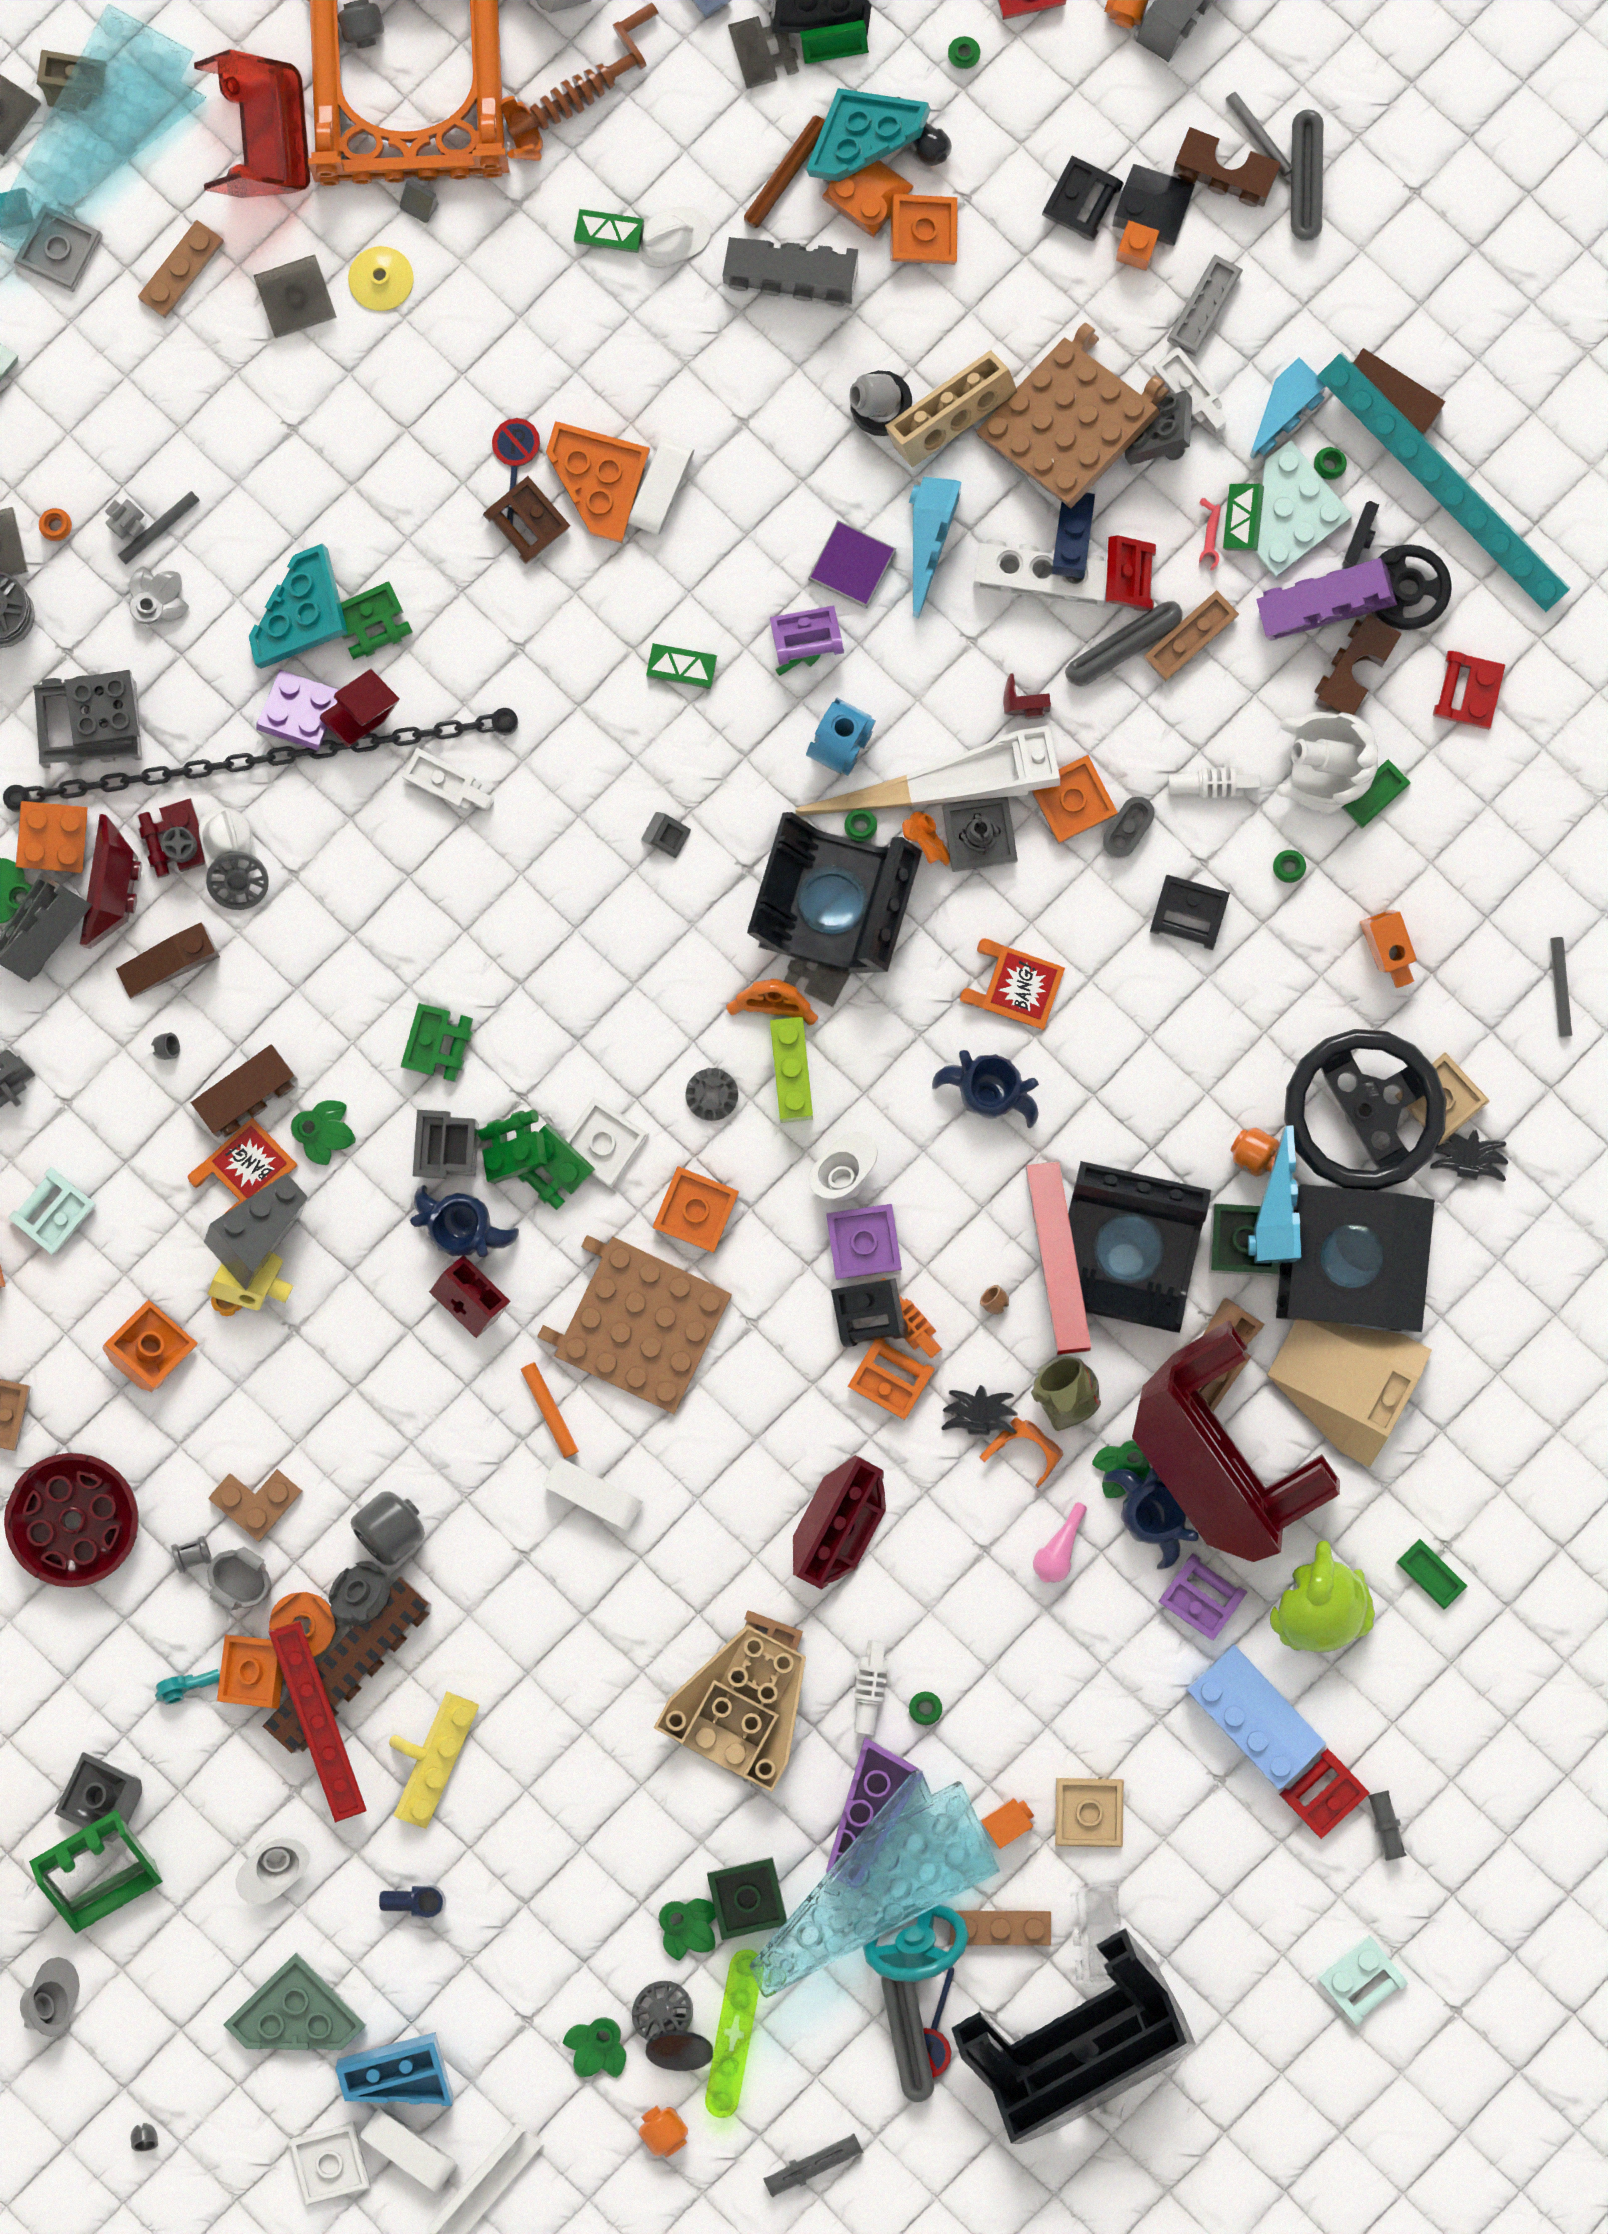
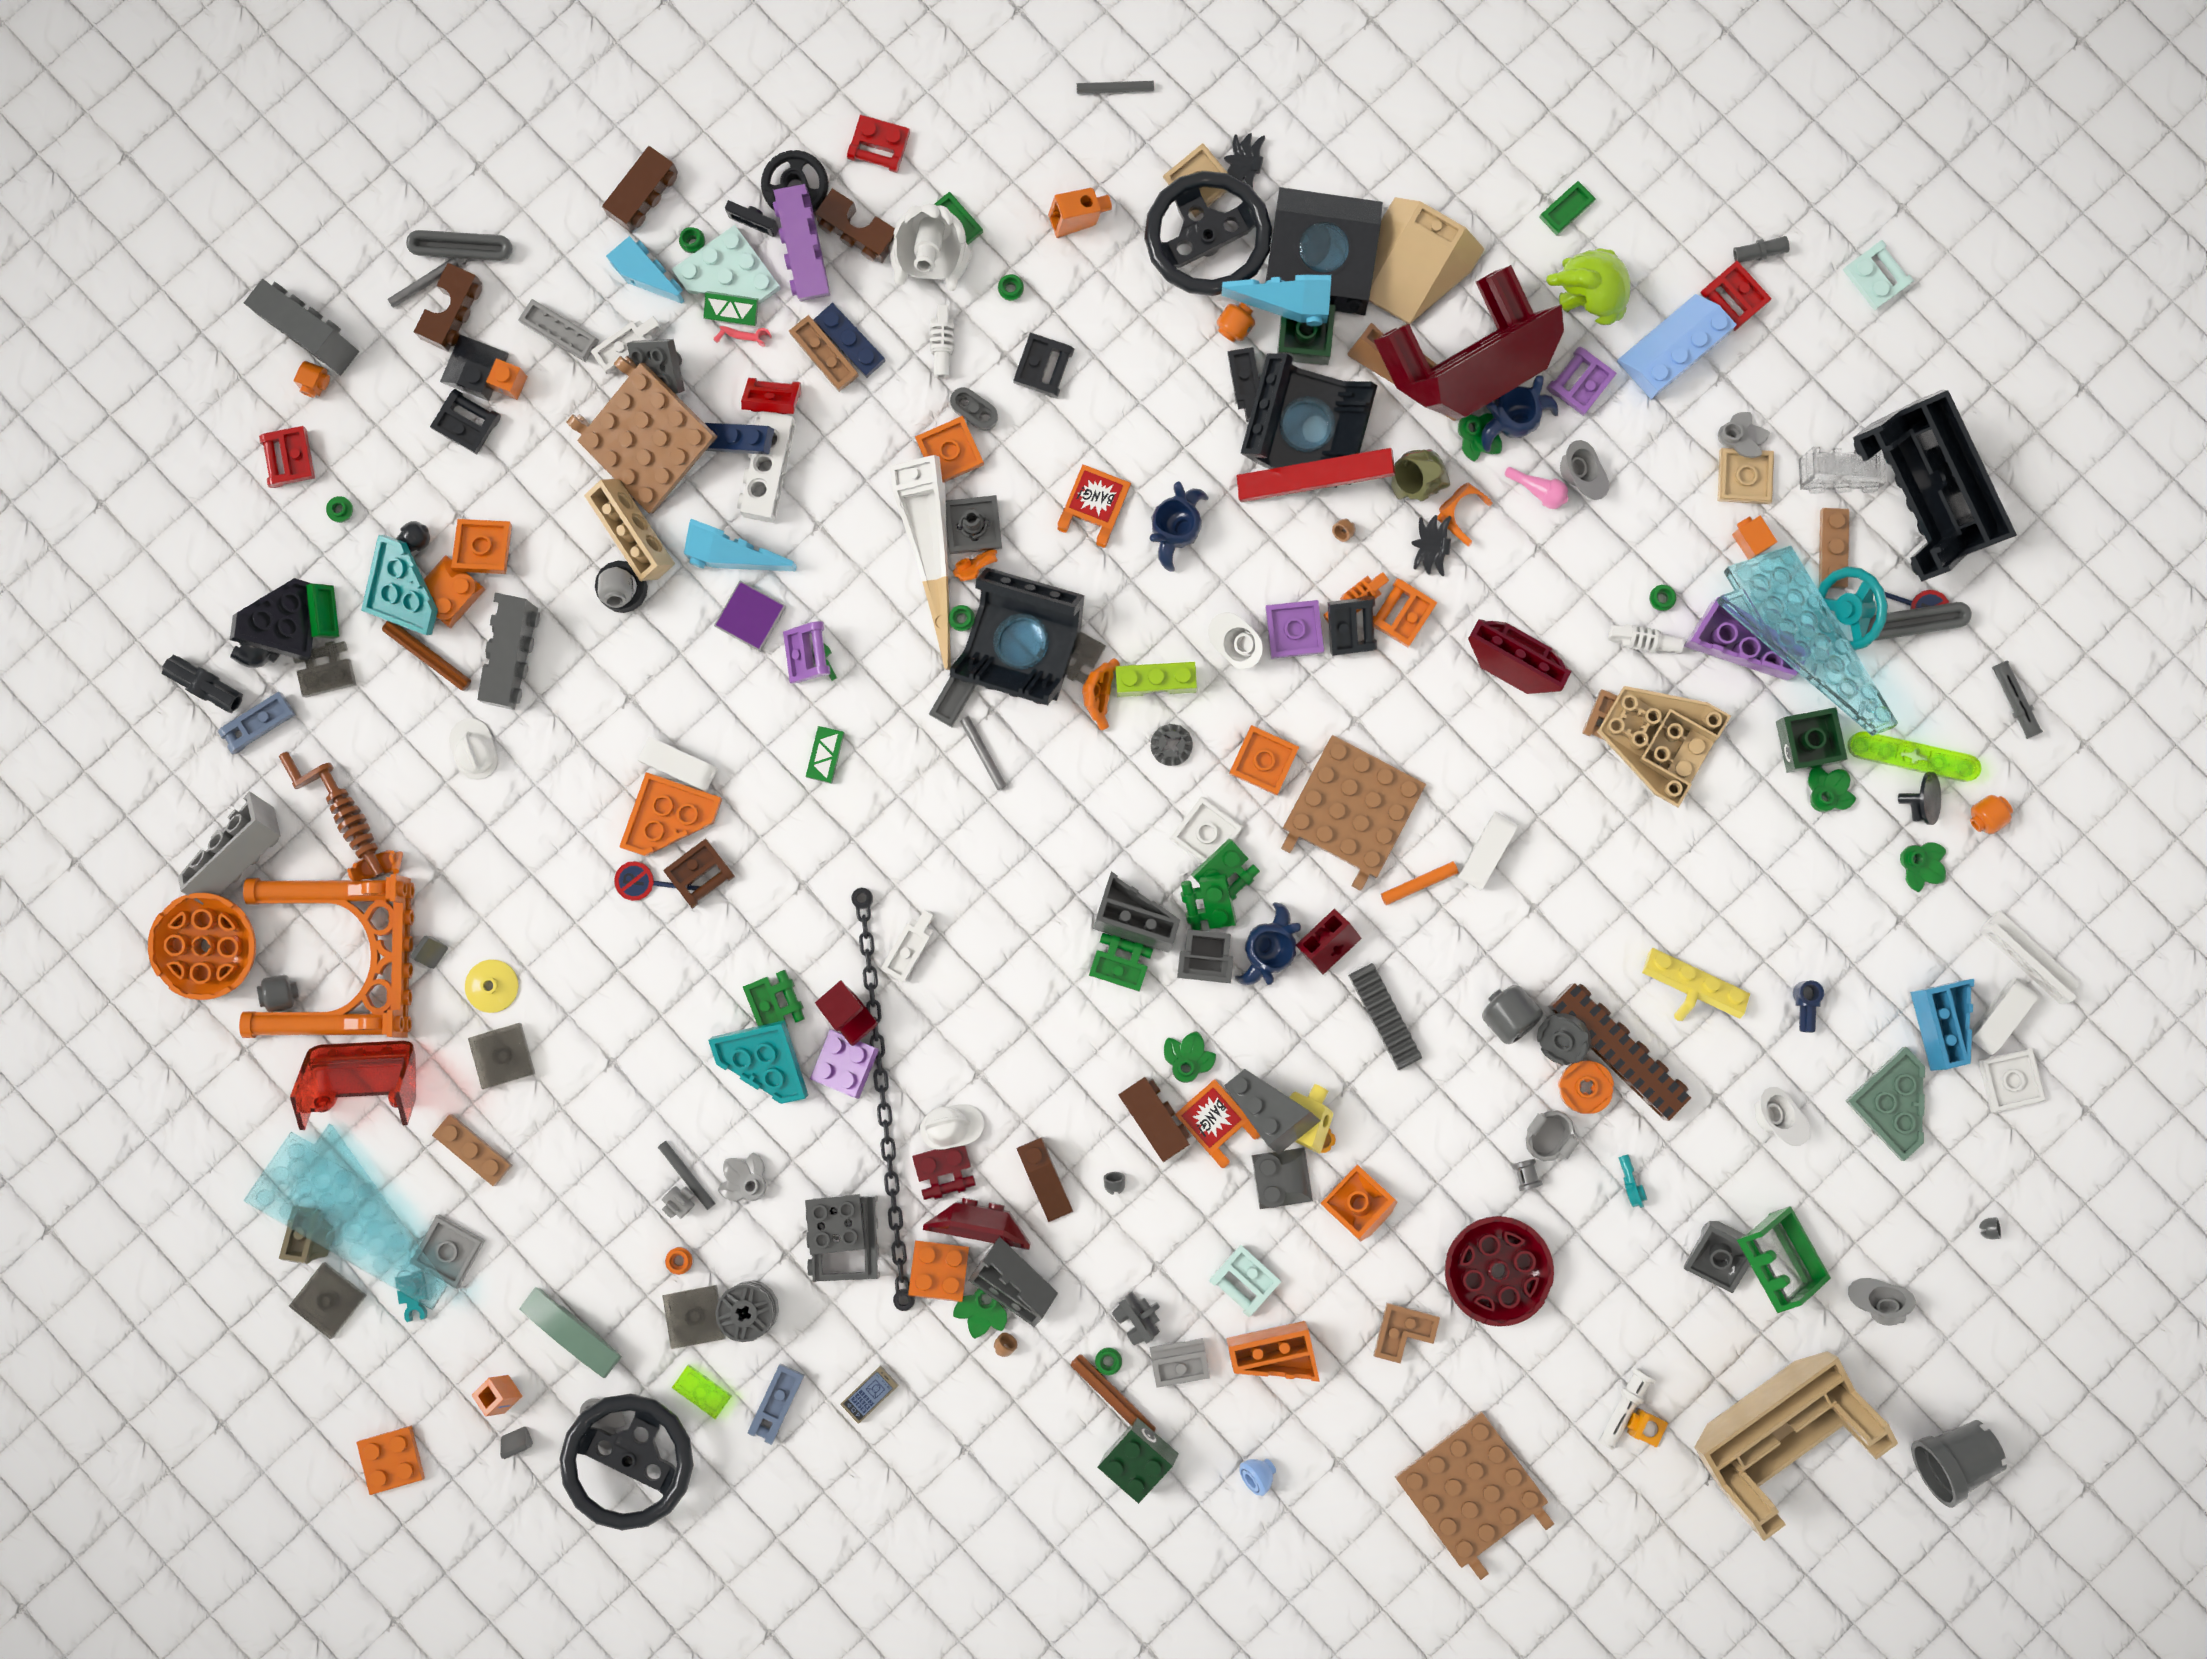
camera: 90 degrees left, 0 degrees up
(177, 1252) = (1282, 1178): none -> dark grey slope
(178, 838) = (947, 1163): dark grey wheel -> none
(237, 880) = (982, 1118): dark grey wheel -> none
(250, 1672) = (1624, 1128): orange plate -> none
(257, 1511) = (1493, 1121): medium nougat plate -> none
(317, 1721) = (1667, 1075): red tile -> none
(381, 1372) = (1385, 1016): none -> dark grey gear
(491, 1054) = (1135, 917): none -> dark grey wedge
(609, 230) = (465, 798): green tile -> none
(661, 2010) = (1897, 811): dark grey wheel -> none
(666, 834) = (960, 773): dark grey slope -> none
(691, 861) = (983, 753): none -> flat silver bar
(753, 817) = (952, 701): none -> dark grey tile
(841, 736) = (890, 627): dark azure brick -> none
(1030, 706) = (873, 479): dark red plate -> none
(1082, 1602) = (1584, 470): none -> light grey piece
(1124, 644) = (827, 405): dark grey piece -> none
(1141, 1812) = (1745, 435): none -> light grey plate
(1186, 1165) = (1244, 378): none -> black hinge
(1211, 667) = (849, 340): none -> dark blue plate
(1443, 482) = (712, 151): teal plate -> none

